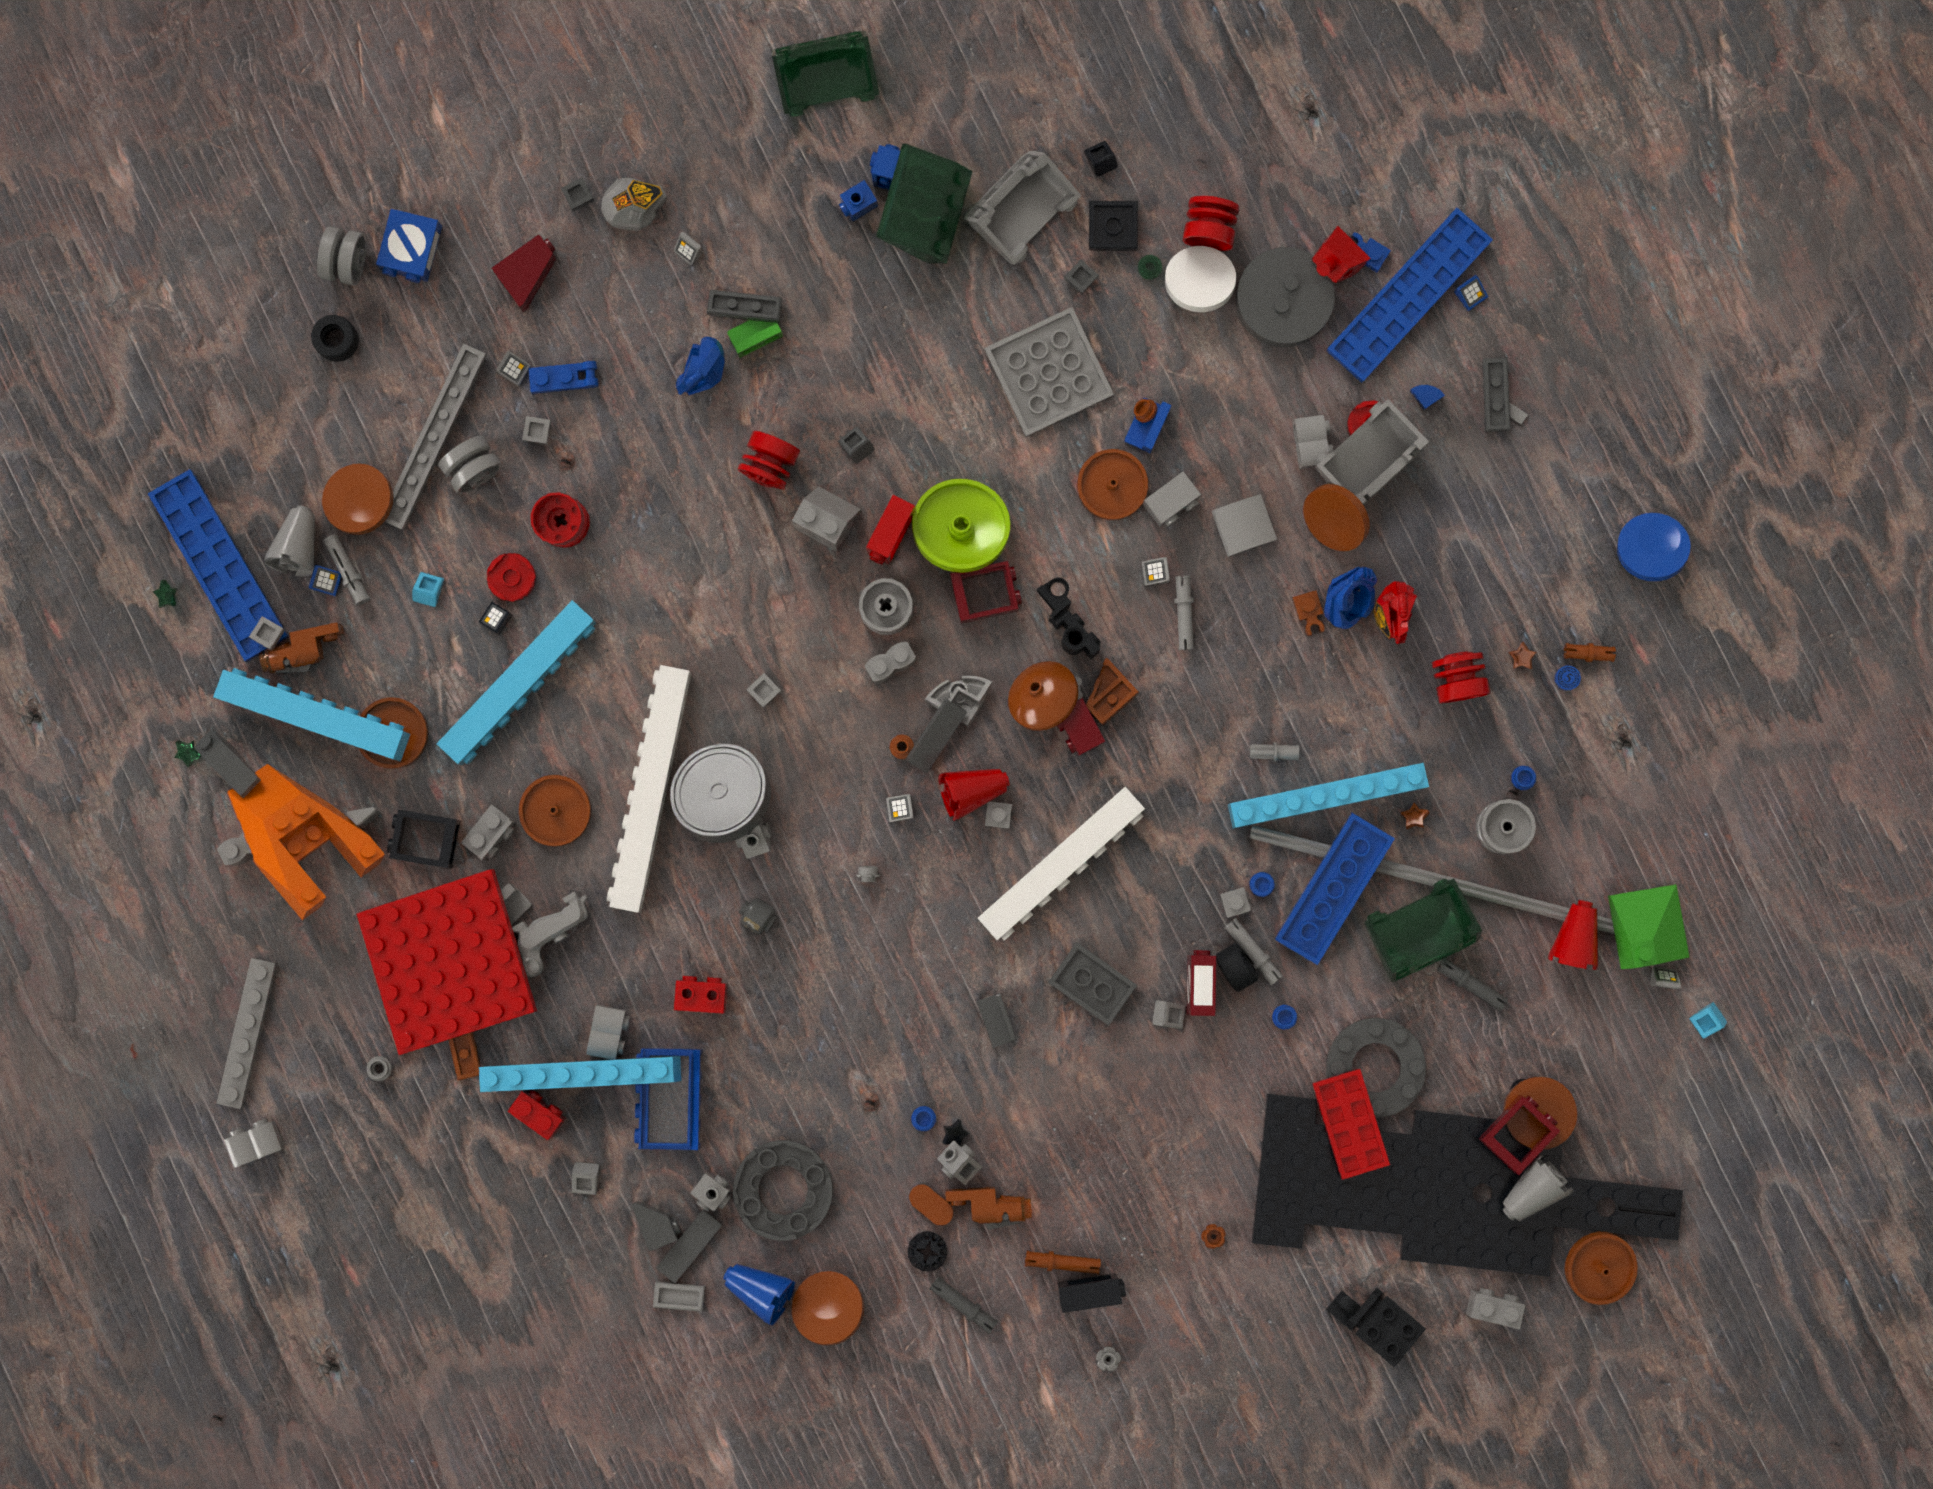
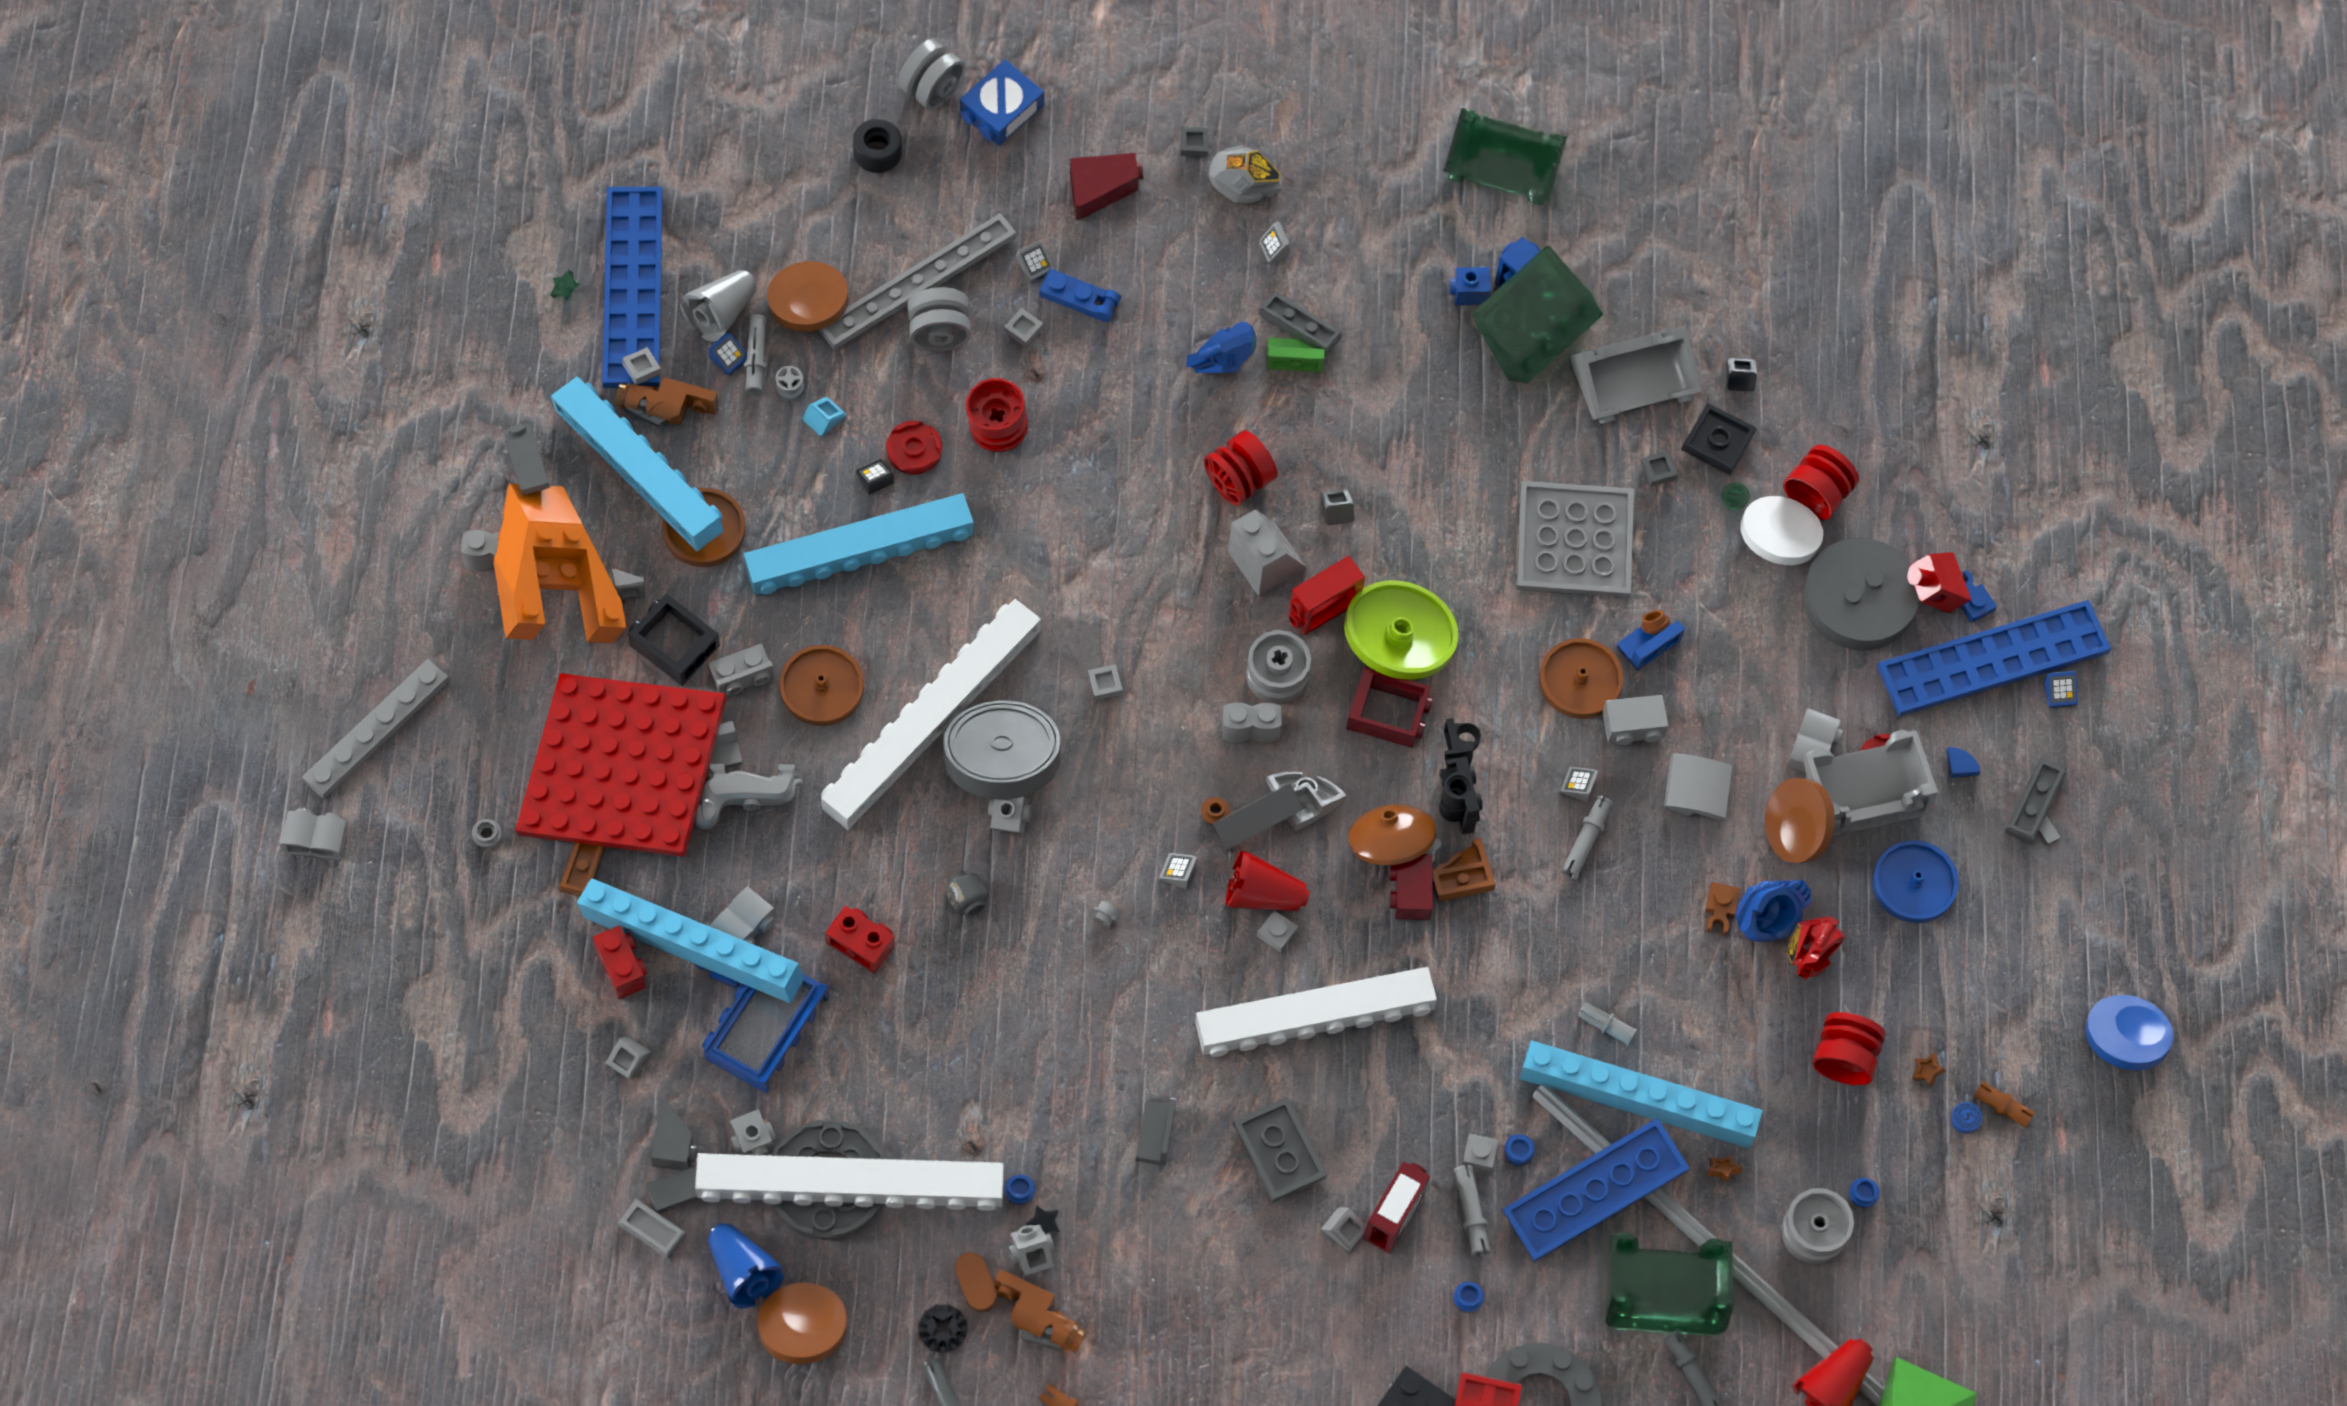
camera: 25 degrees right, 20 degrees down
(186, 752) = (490, 437): clear green piece -> none
(383, 574) = (787, 376): none -> light grey wheel
(800, 1189) = (849, 1181): none -> white brick
(1236, 967) = (1444, 1212): black tyre -> none
(1440, 510) = (1915, 881): none -> blue piece

